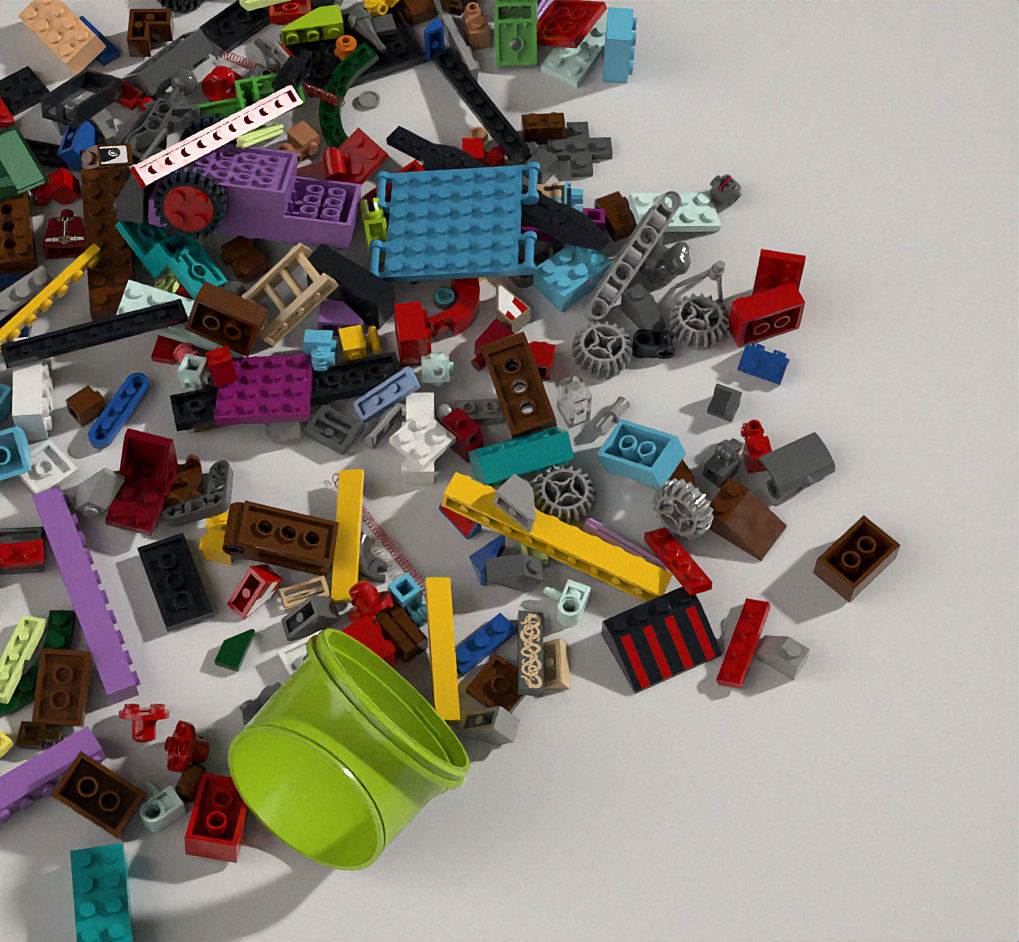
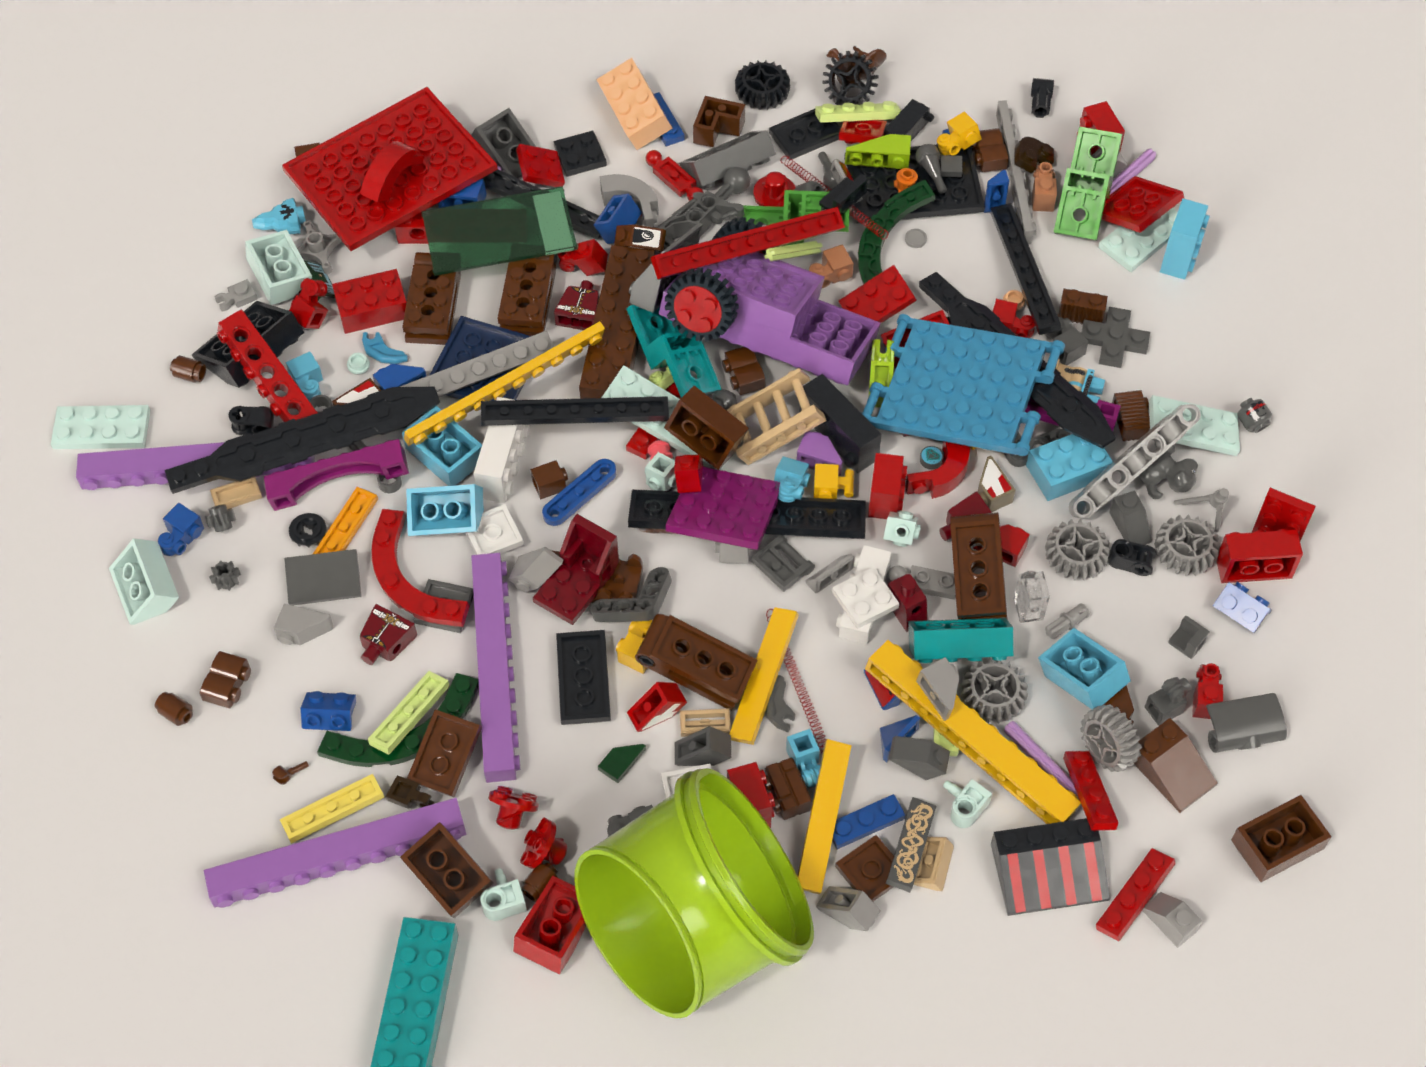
camera: 20 degrees right, 0 degrees up
(81, 97) = (632, 174): black door -> none
(330, 168) = (854, 299): red door -> none
(368, 601) = (763, 747): red plate -> none
(386, 394) = (843, 542): medium blue plate -> none

